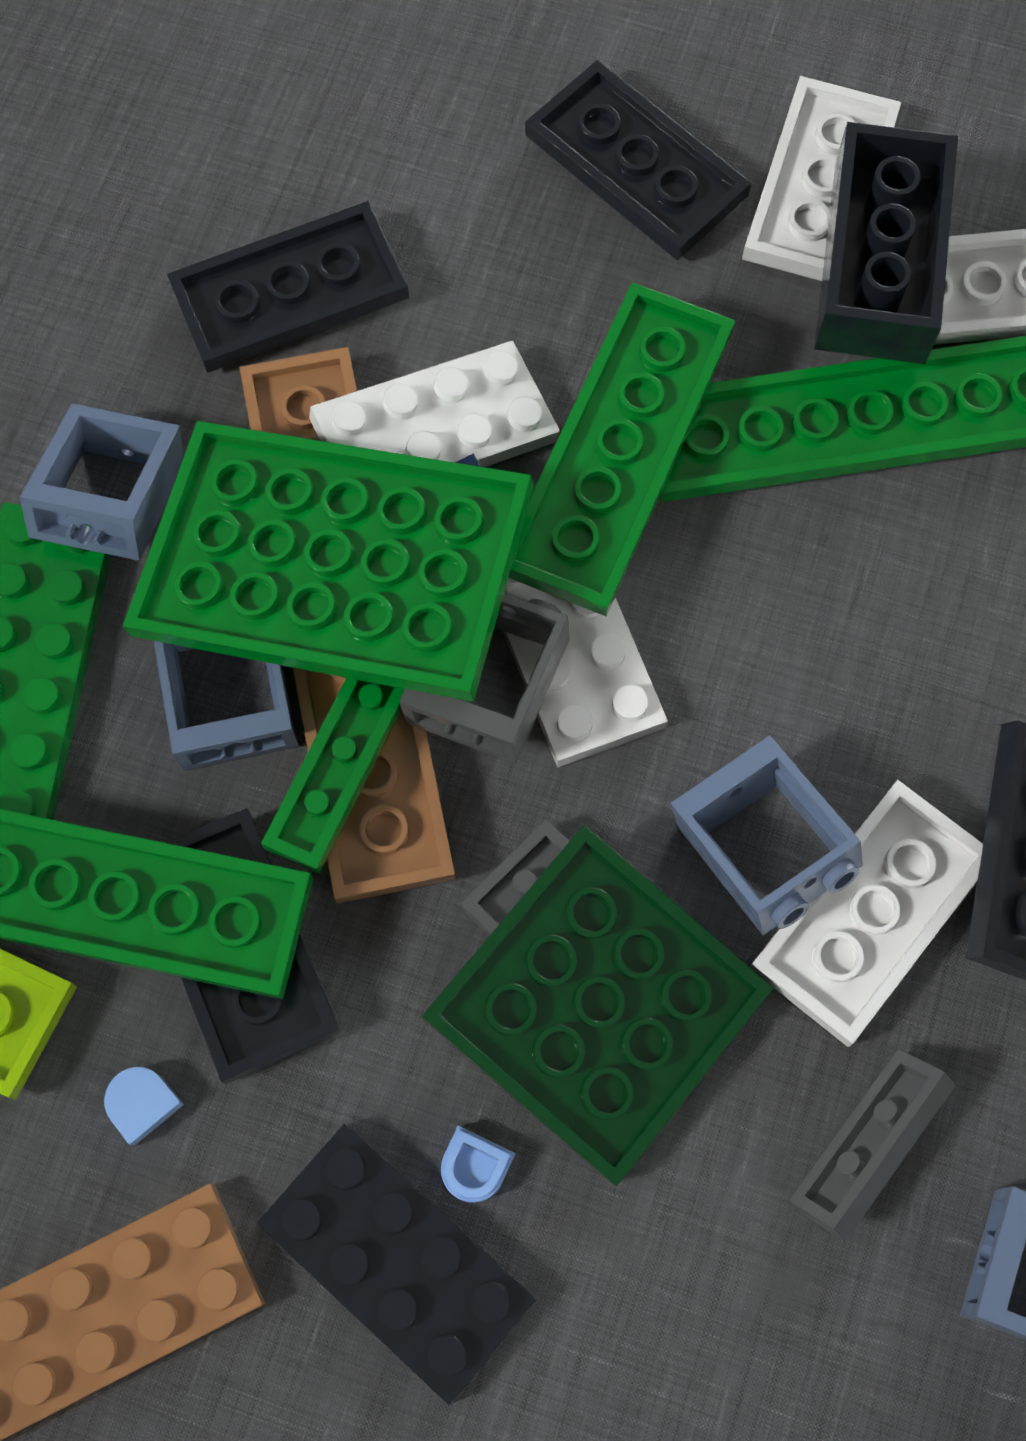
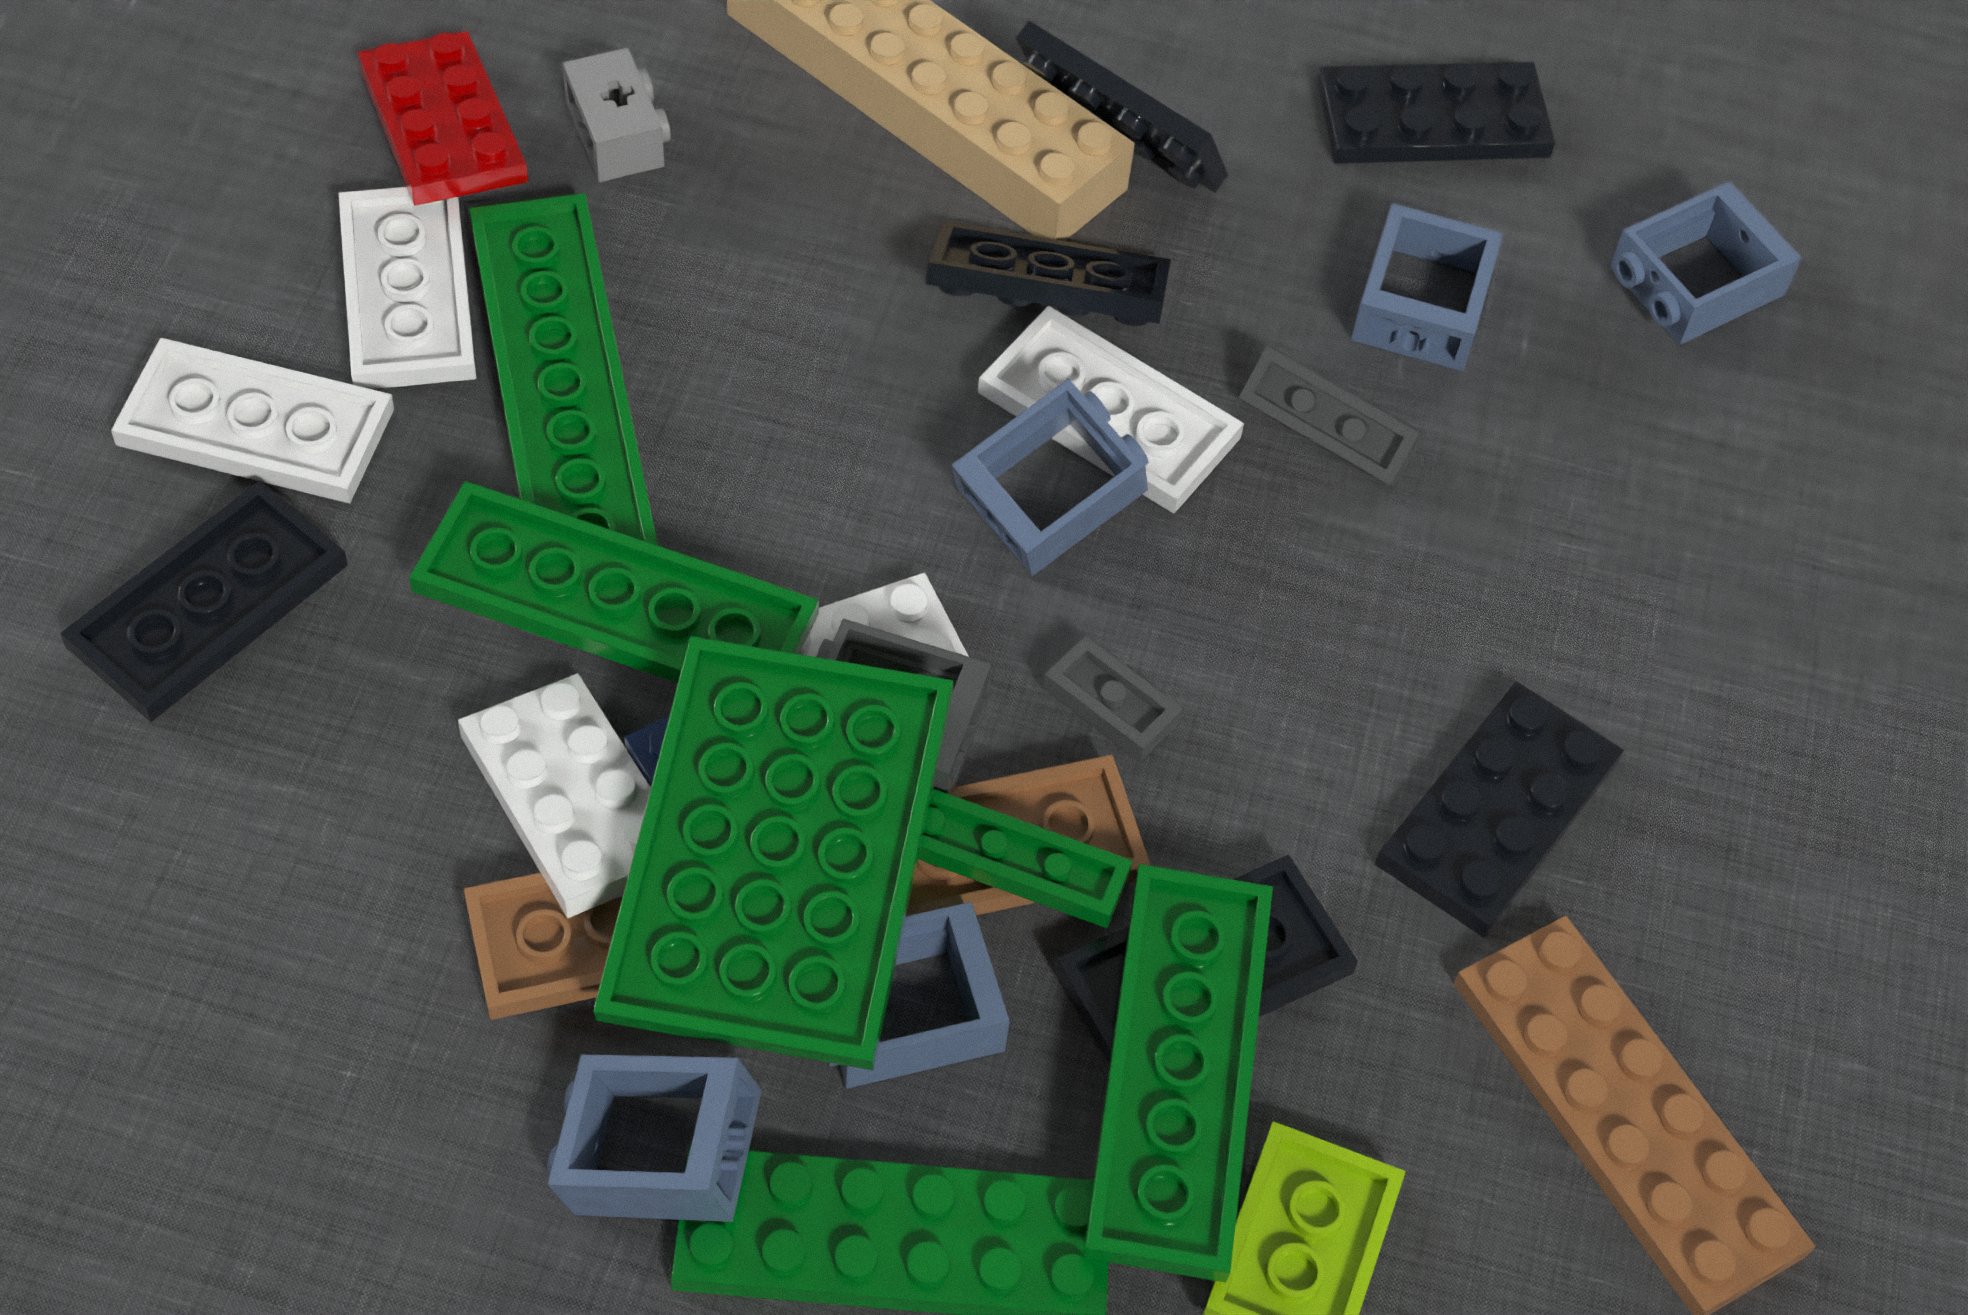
camera: 100 degrees left, 15 degrees down
(139, 1102) = (1385, 1054): light blue tile -> none
(288, 286) = (365, 971): black plate -> none
(474, 1166) = (1400, 743): light blue tile -> none
(597, 1004) = (1231, 625): dark green plate -> none
(887, 243) = (376, 338): black brick -> none

